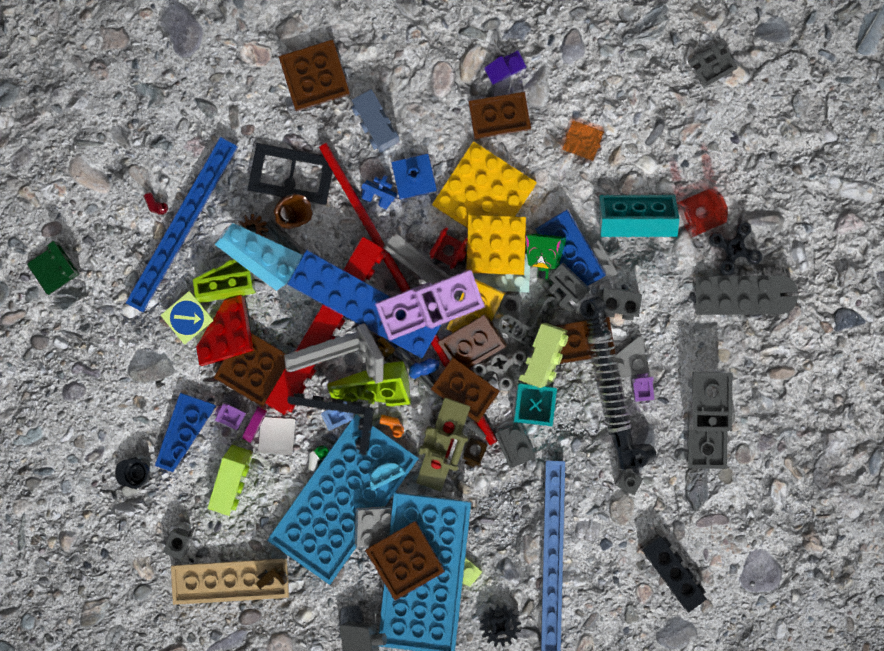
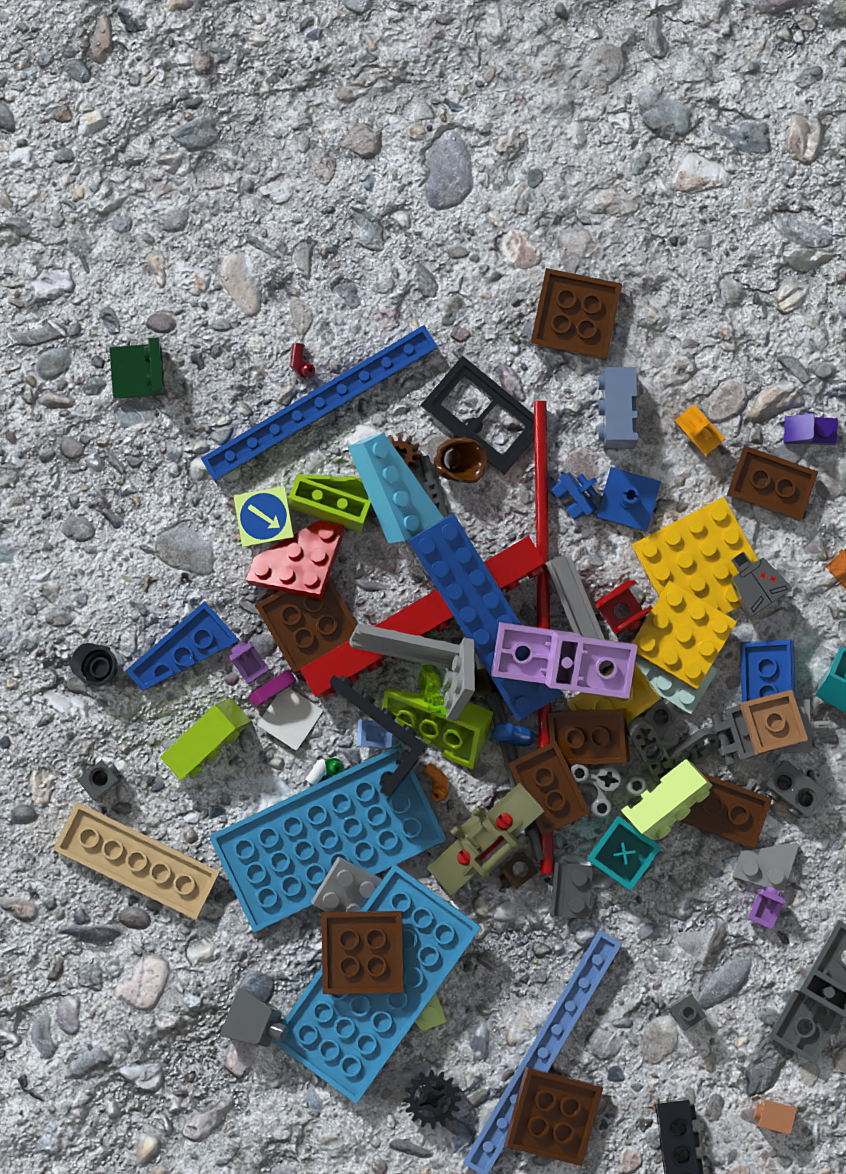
camera: 30 degrees right, 5 degrees down
(265, 577) = (184, 878): dark brown bracket -> none
(353, 366) = (429, 685): none -> clear neon green plate
(385, 473) = (396, 835): medium azure plate -> none
(434, 107) = (699, 430): none -> light orange hips
(525, 186) = (757, 584): none -> dark grey torso
(544, 252) = (736, 676): green torso -> none
(581, 593) = (553, 1116): none -> reddish brown plate
(584, 269) = (773, 722): none -> medium nougat plate
(619, 428) = (725, 888): black piece -> none
(719, 515) = (774, 1116): none -> nougat brick

